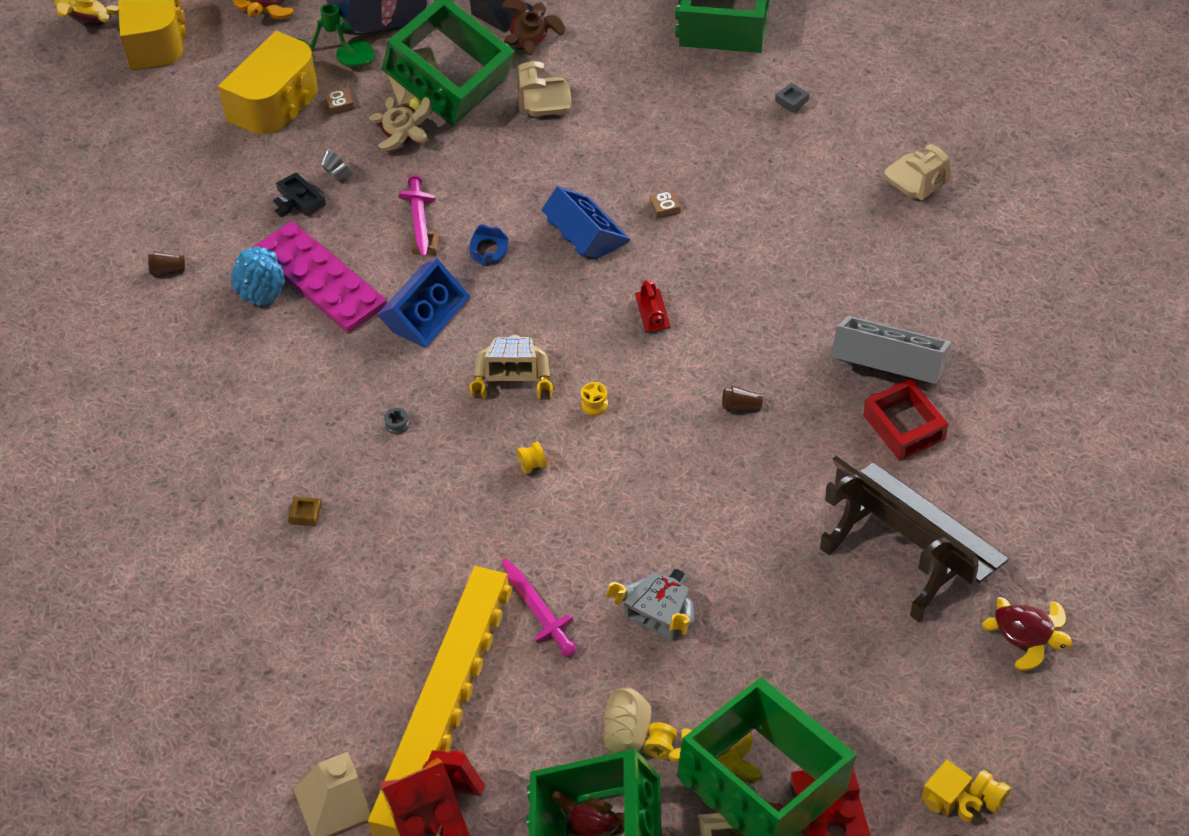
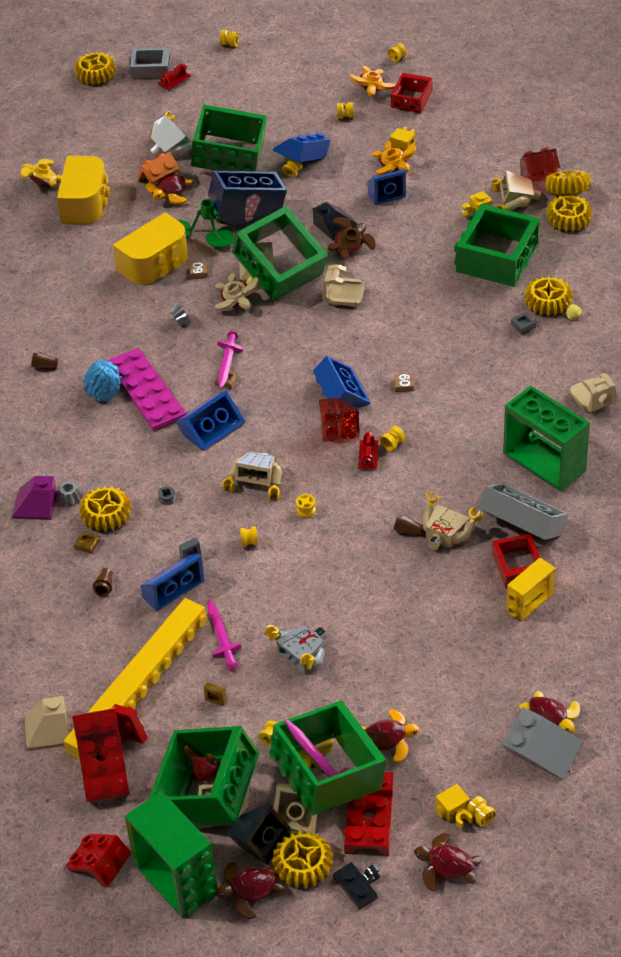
camera: 15 degrees right, 5 degrees down
(213, 462) = (36, 499): none -> magenta slope
(257, 445) = (69, 493): none -> light grey piece
(299, 194) = (147, 329): black plate -> none
(317, 457) = (105, 508): none -> yellow gear
(348, 566) = (103, 584): none -> reddish brown cone
(448, 544) = (173, 582): none -> blue slope
(455, 493) = (189, 548): none -> dark grey plate
(495, 234) = (268, 379): blue piece -> none
(561, 698) = (215, 694): none -> pearl gold tile
(600, 270) = (338, 419): none -> clear red slope
(626, 721) = (253, 714): tan piece -> none
(678, 283) = (391, 439): none -> yellow wheel
(779, 789) = (312, 751): none -> dark pink sword
(794, 390) = (447, 526): none -> tan torso
(811, 57) = (548, 296): none -> yellow gear
(828, 703) = (390, 734): none -> dark red animal
(850, 72) = (573, 312): none -> light yellow hinge
(898, 220) = (538, 412): none -> green window
(940, 456) = (530, 589): none -> yellow window
(944, 541) = (463, 606): dark brown piece -> none
(1038, 673) = (542, 743): none -> light grey slope

